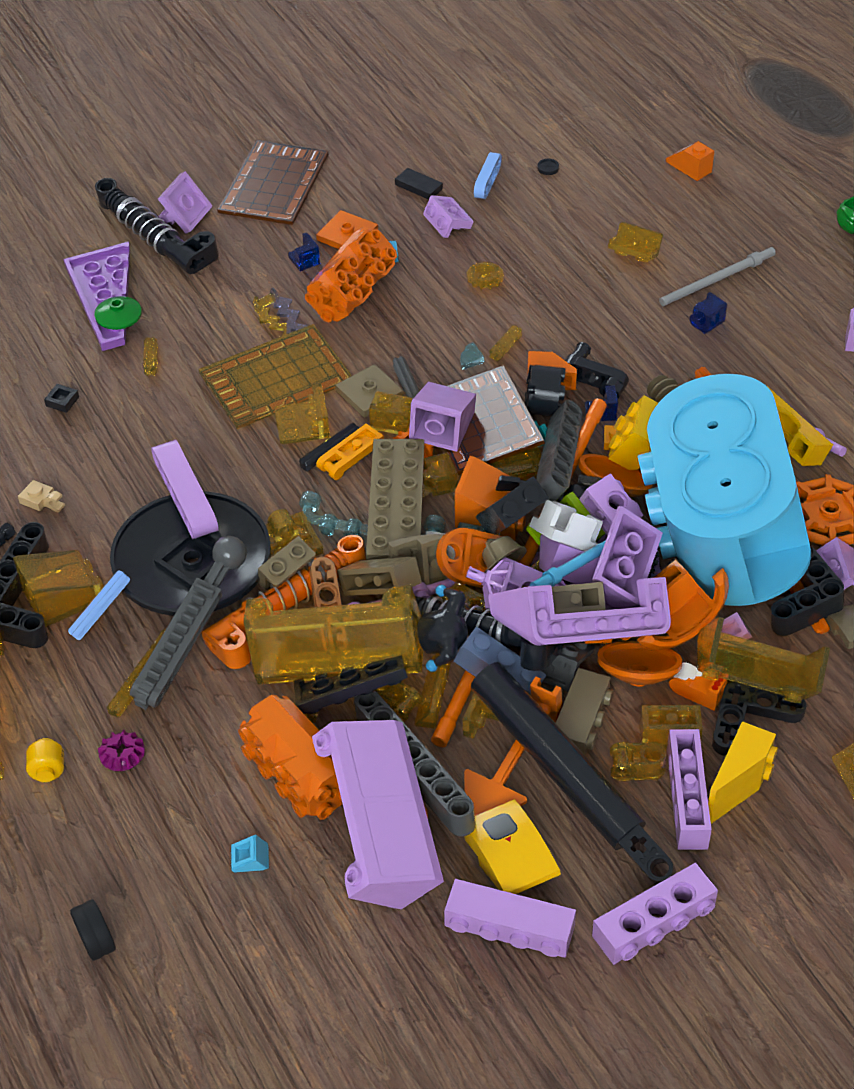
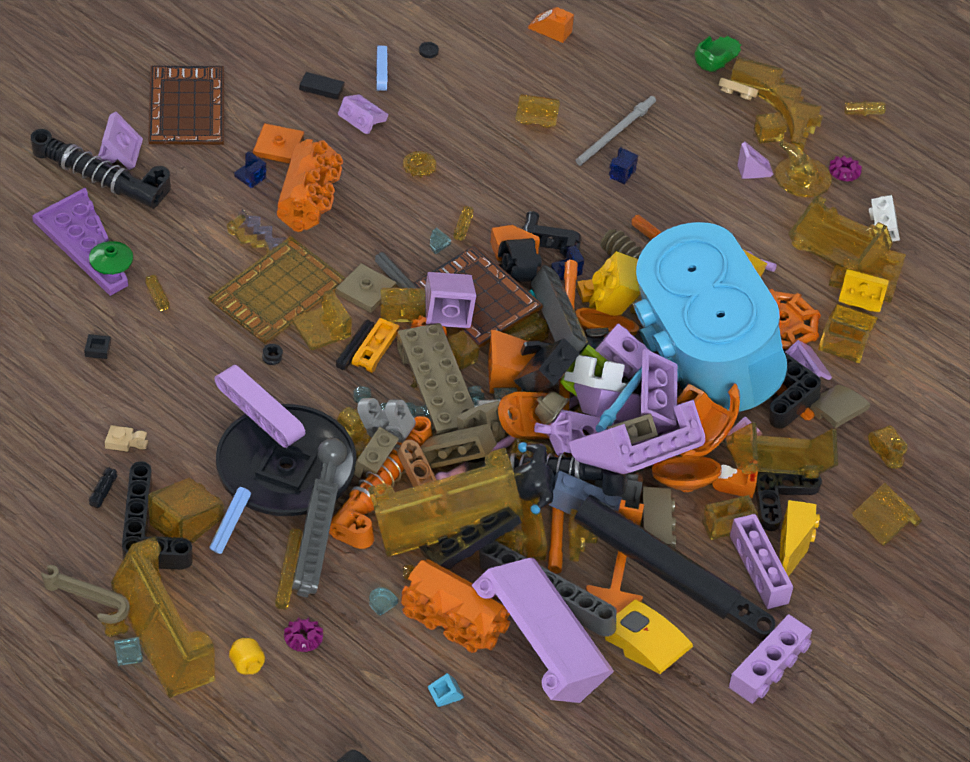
camera: 25 degrees left, 0 degrees up
(225, 732) = (382, 600): none -> clear light blue tile
(237, 434) = (272, 348): none -> black bush
(317, 534) = (394, 419): none -> light grey piece
(510, 918) = (668, 687): lavender brick -> none
(638, 761) = (714, 548): clear yellow piece -> none

